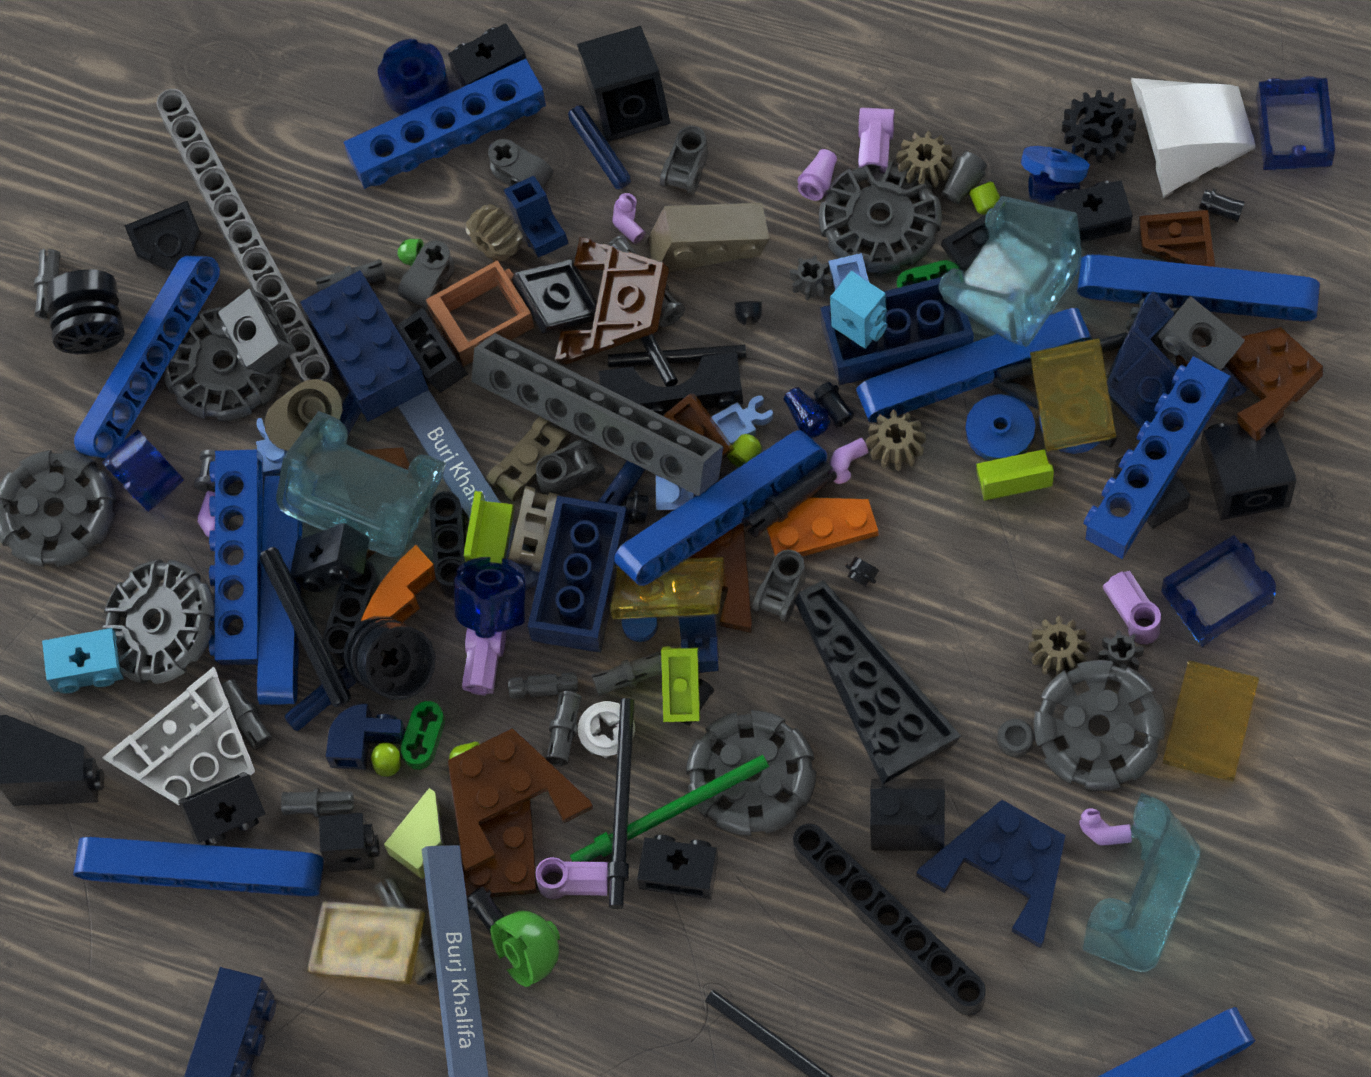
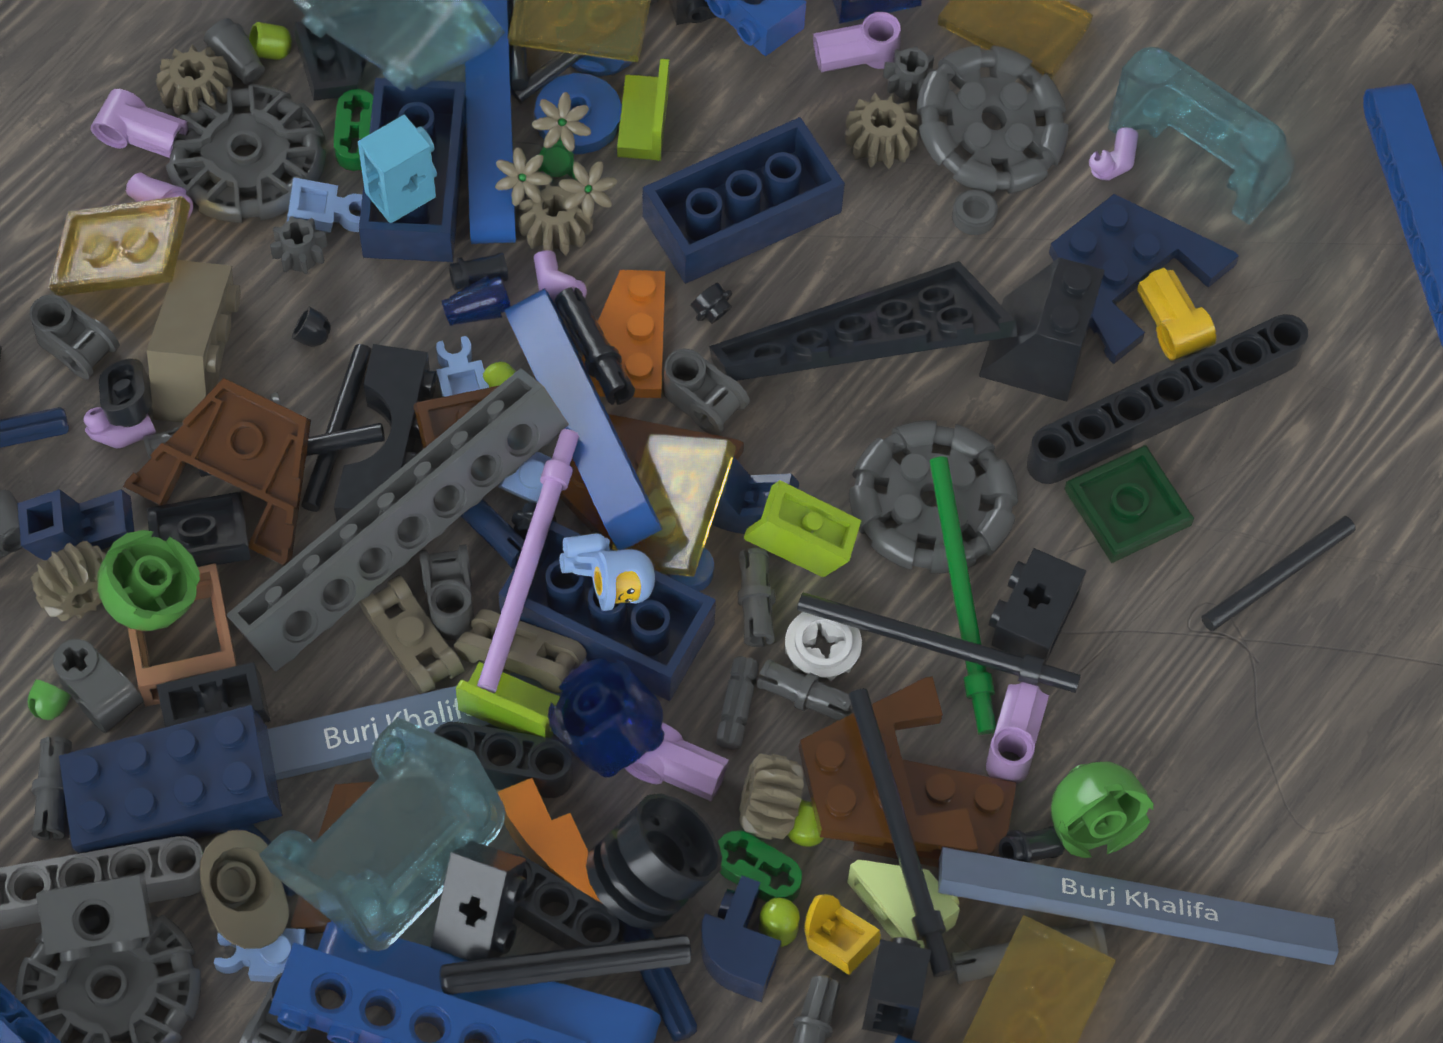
camera: 85 degrees left, 5 degrees down
(385, 799) = (839, 933): none -> yellow plate
(395, 847) = (927, 921): none -> black bar
(467, 723) = (771, 796): none -> dark tan gear
(487, 271) = (147, 581): none -> bright green cylinder
(585, 564) = (616, 574): none -> light blue piece
(643, 210) = (125, 393): none -> black plate
(654, 501) = (555, 479): none -> lavender bar
(763, 162) = (119, 246): none -> clear yellow tile
(793, 915) = (1128, 503): none -> dark green tile
(944, 421) = (557, 160): none -> dark tan plant
(952, 563) = (742, 199): none -> dark blue brick
(960, 914) = (1179, 324): none -> yellow piece

